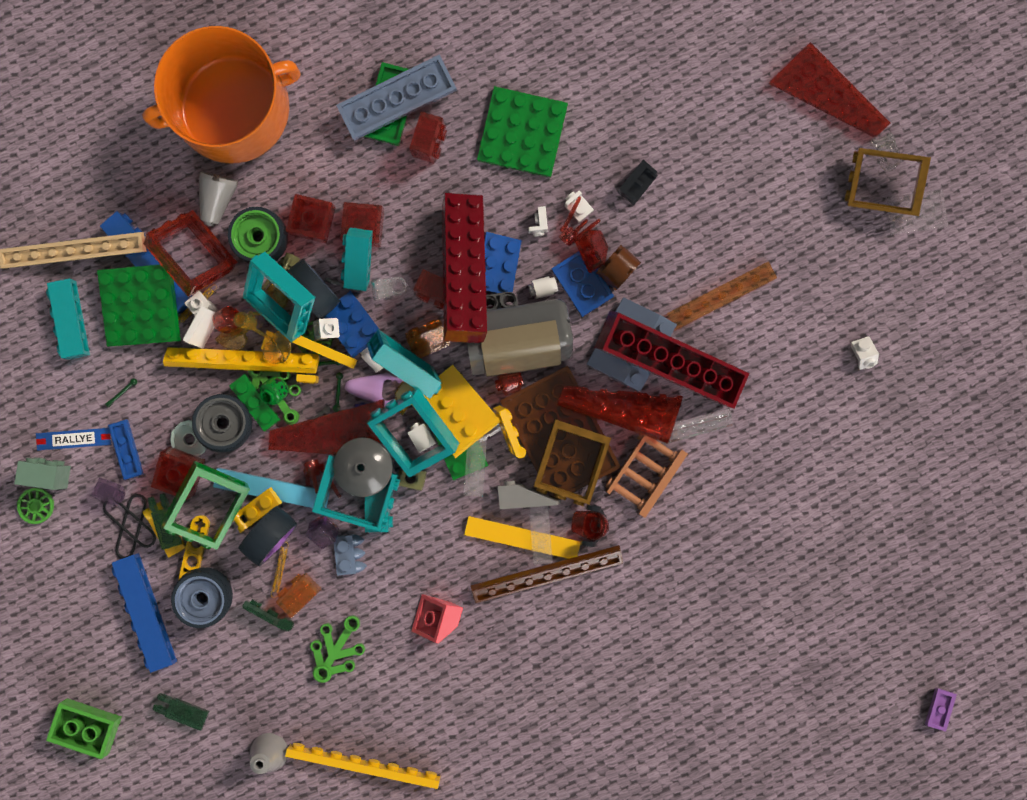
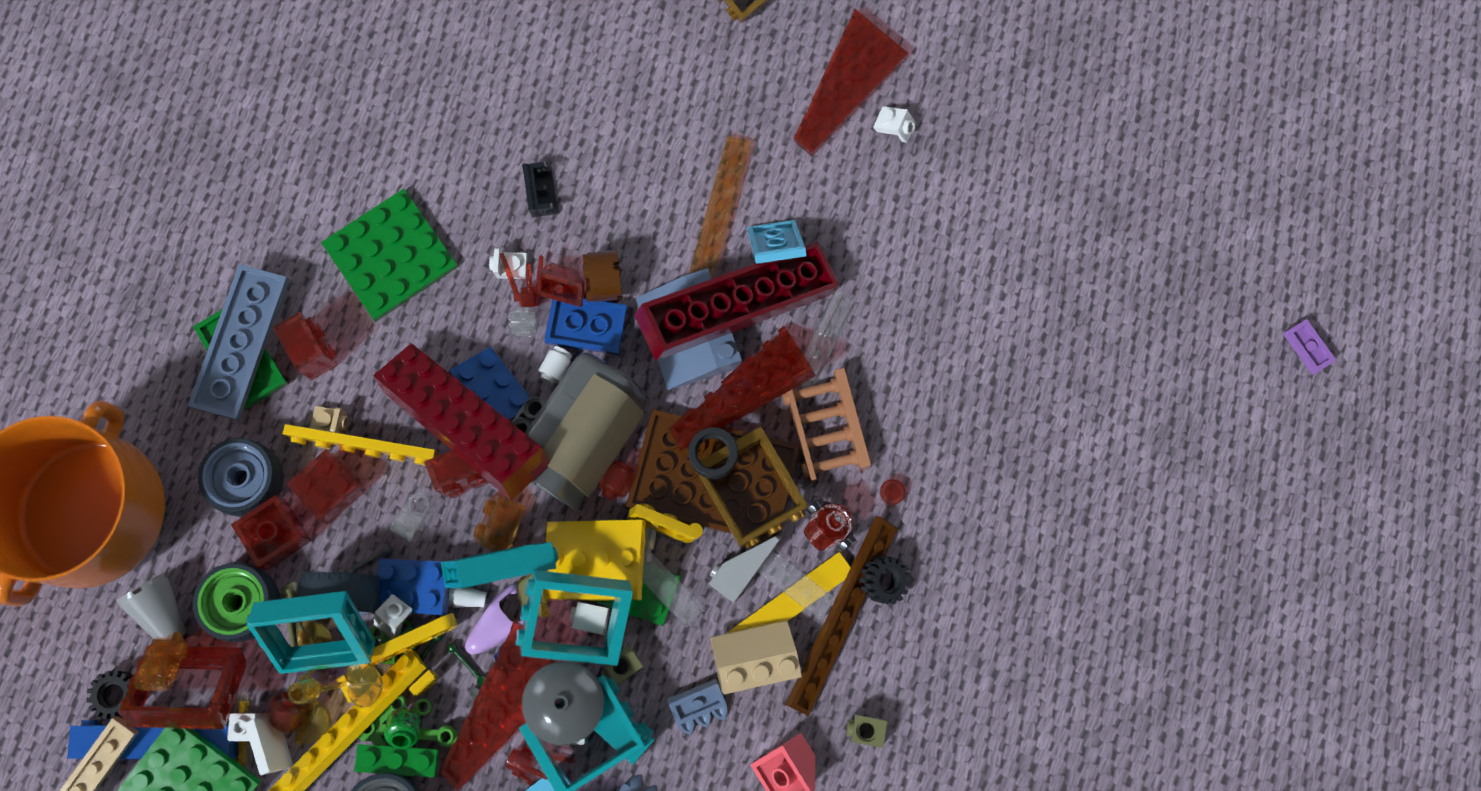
camera: 45 degrees left, 10 degrees down
(148, 206) = (98, 693): none -> black tyre
(190, 229) = (161, 664): none -> clear orange bracket
(318, 159) = (223, 468): none -> sand blue wheel
(357, 259) = (353, 521): teal brick -> none
(397, 214) = (350, 444): none -> yellow plate
(399, 189) = (329, 419): none -> tan bracket
(428, 538) = (697, 705): none -> sand blue plate
(481, 547) = (755, 657): none -> tan slope
(496, 651) = (878, 735): none -> olive brick
(541, 219) = (487, 309): white bracket -> none
(551, 246) = (523, 322): none -> clear gear
(586, 425) = (699, 438): none -> black tyre
(592, 589) = (897, 584): none -> black tyre
(641, 542) = (892, 492): none -> clear red tile
(728, 349) = (776, 241): none -> medium azure tile
(874, 301) = (854, 72): none -> clear red wing

